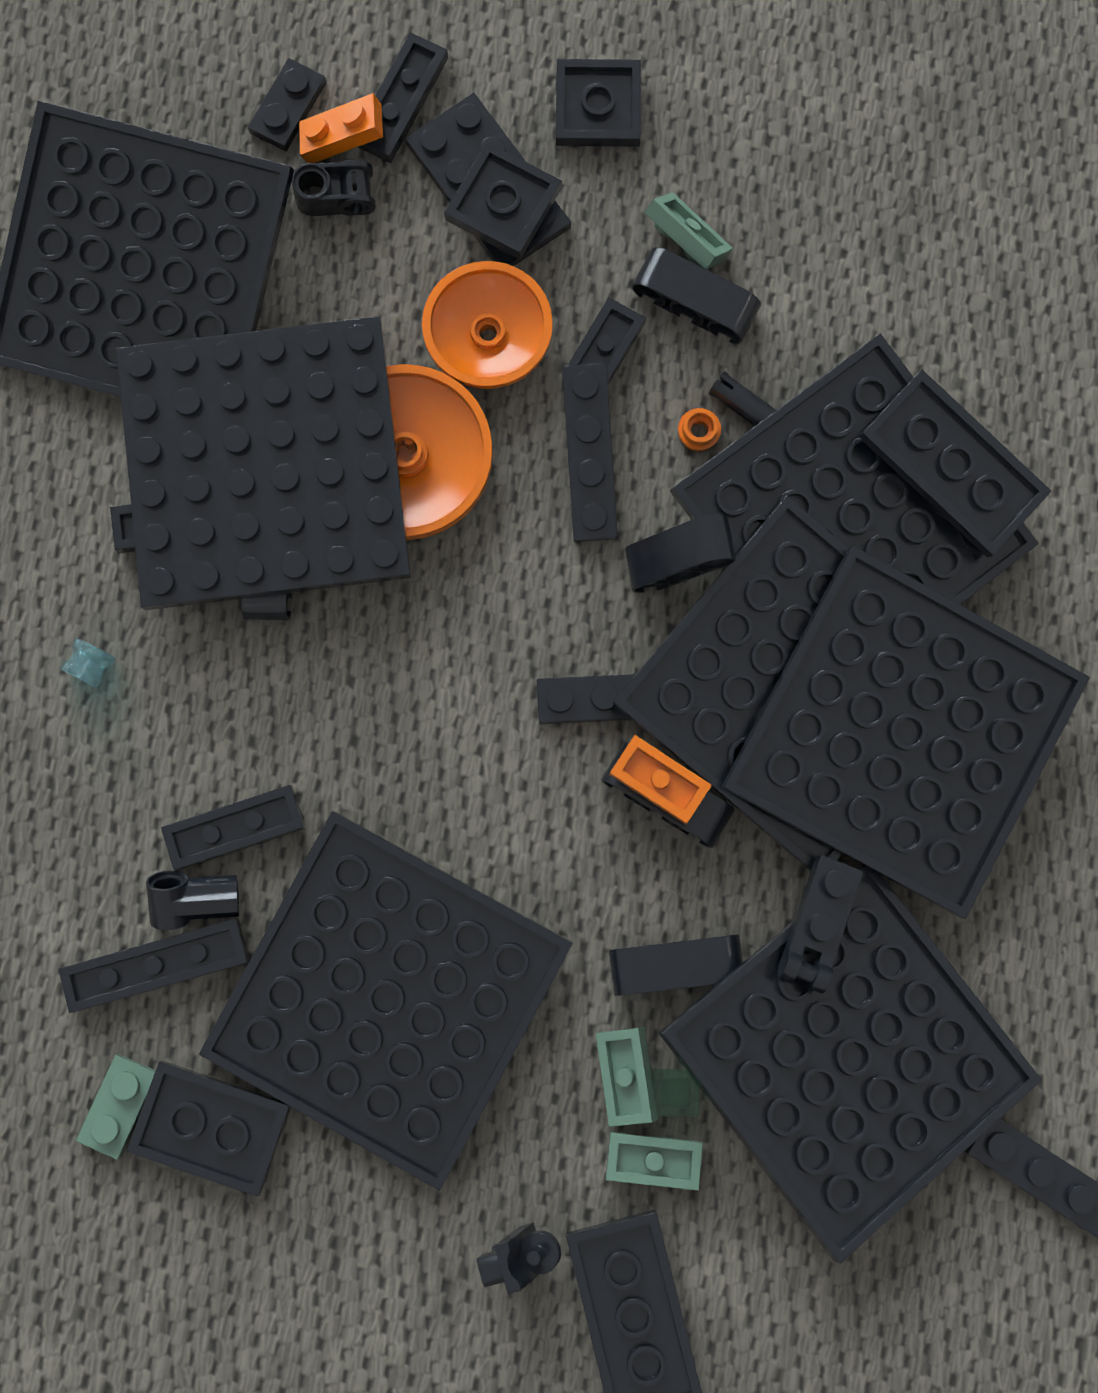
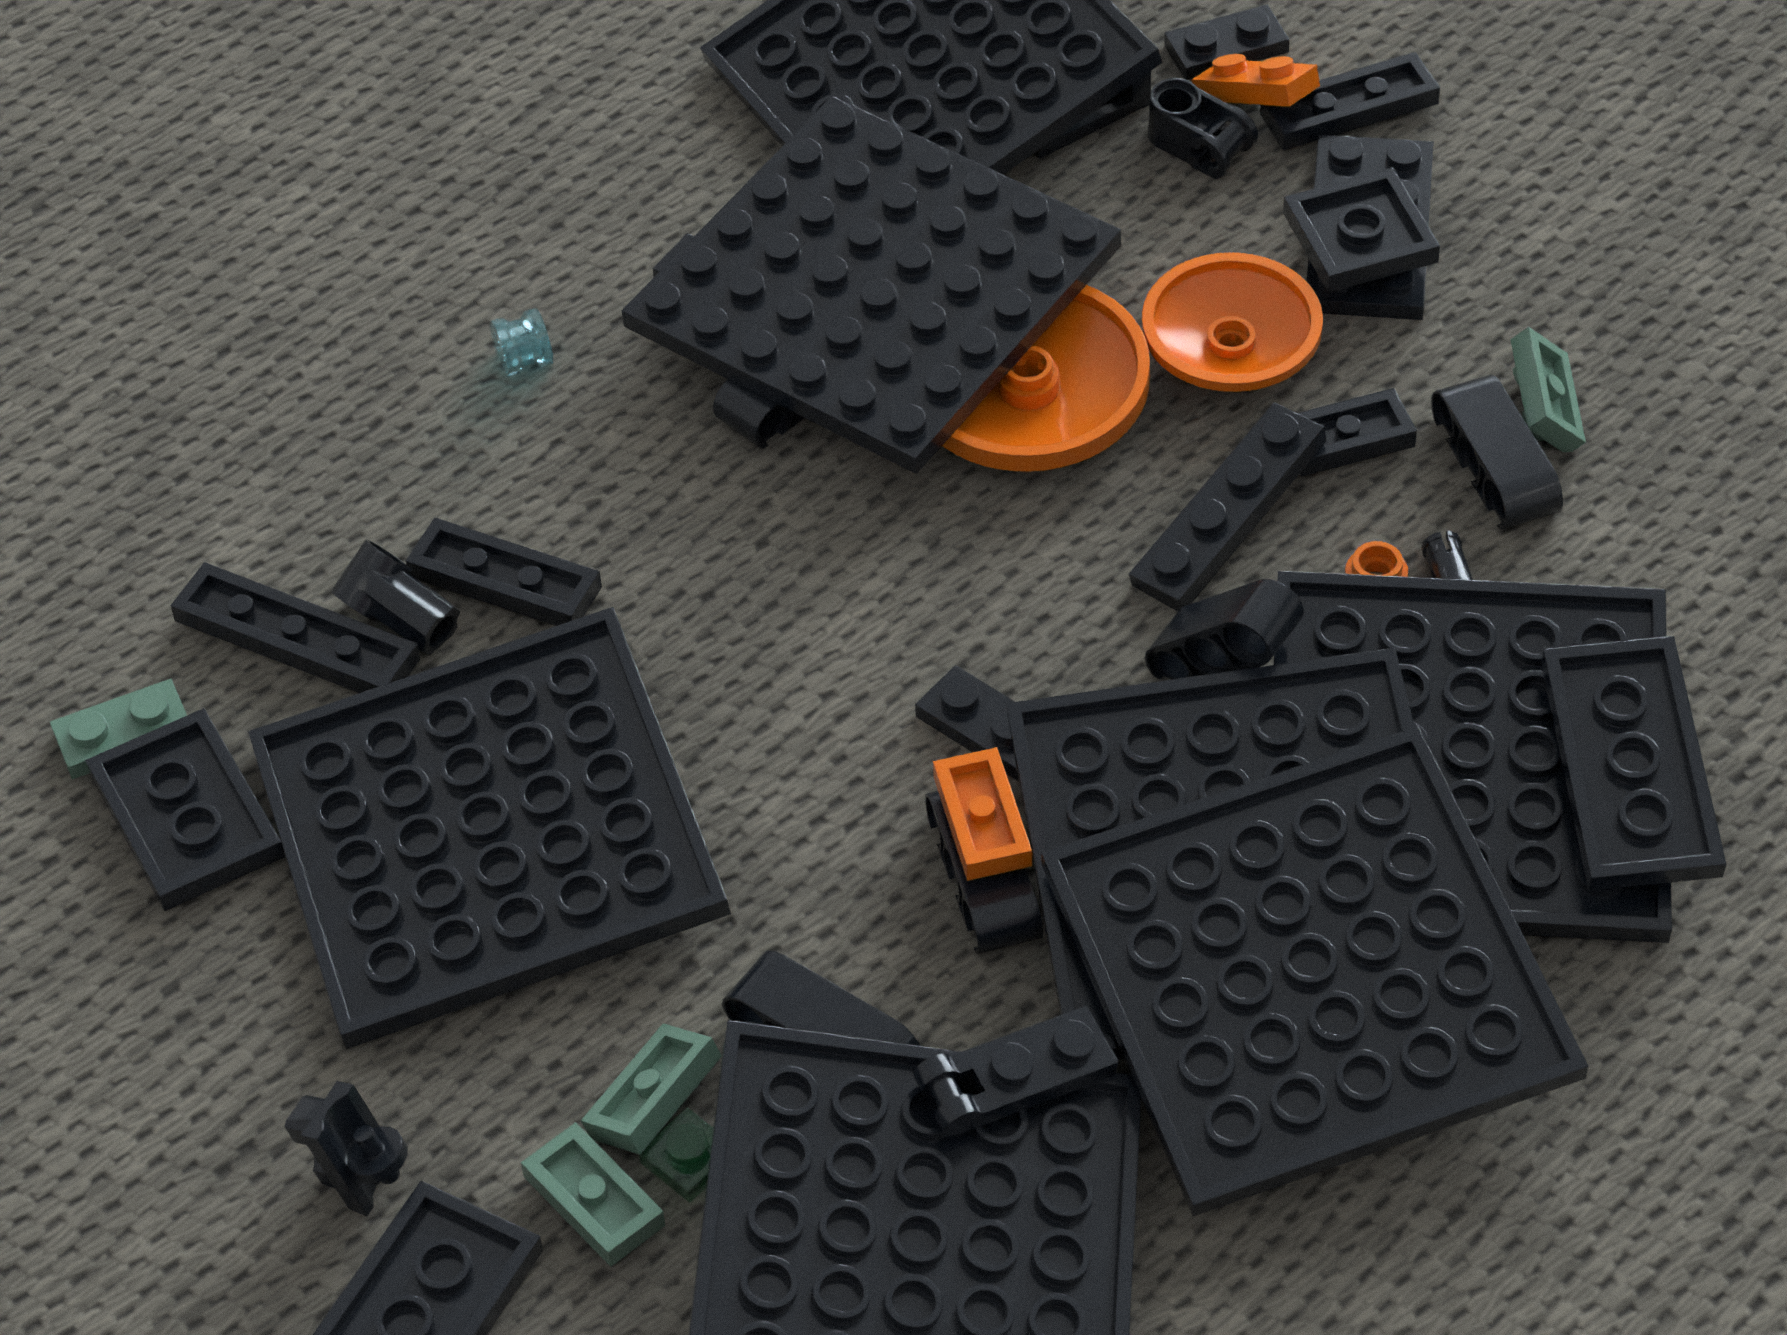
camera: 45 degrees right, 30 degrees down
(598, 102) = (1562, 228): black plate -> none

